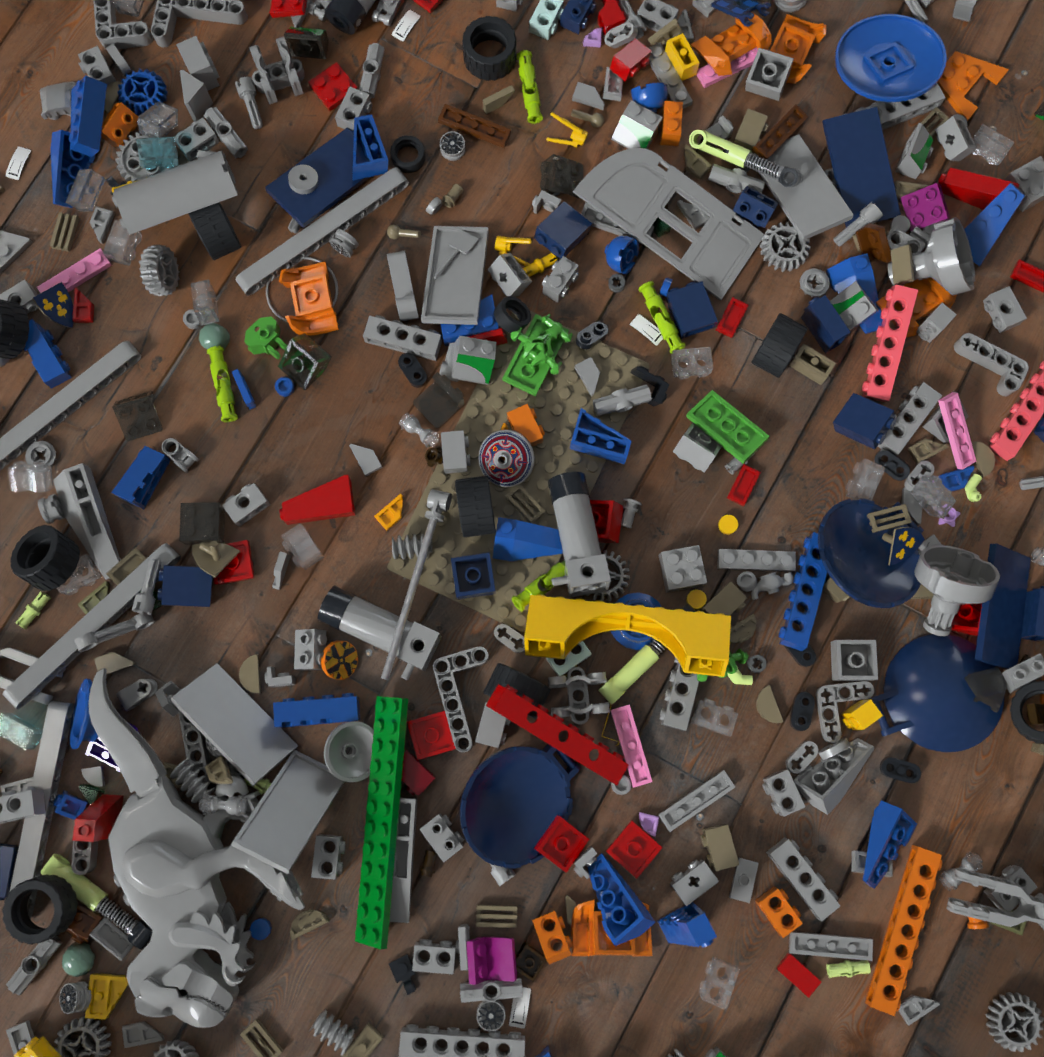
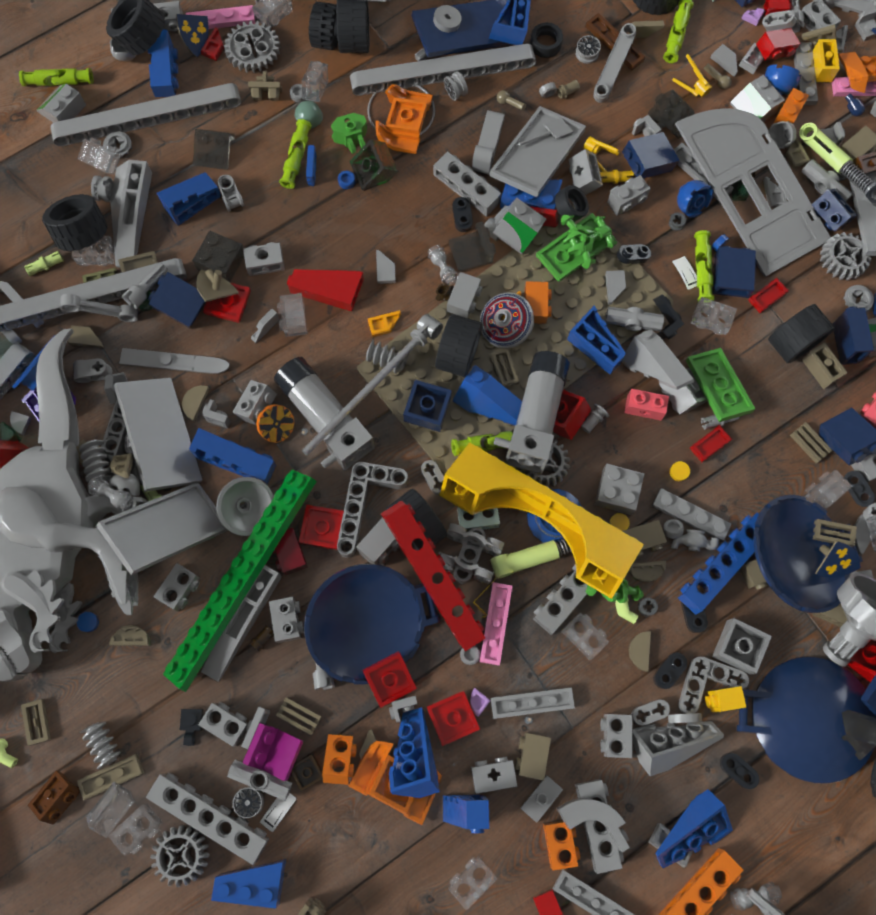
camera: 25 degrees right, 5 degrees down
(109, 304) = (240, 52): none -> light grey gear
(150, 334) = (267, 85): none -> dark tan hips
(159, 270) = (290, 39): light grey gear -> none
(185, 241) = (323, 26): none -> black tyre
(210, 645) = (173, 361): none -> light grey piece
(485, 149) = (614, 62): none -> light grey piece
(659, 433) = (654, 358): none -> light grey wedge
(670, 477) = (646, 404): none -> coral brick
(674, 151) = (783, 133): none -> light grey hair
(729, 90) = (855, 105): none -> dark blue cylinder
(791, 870) = (587, 809): none -> light grey arch
(846, 447) = (811, 436): none -> dark tan tile

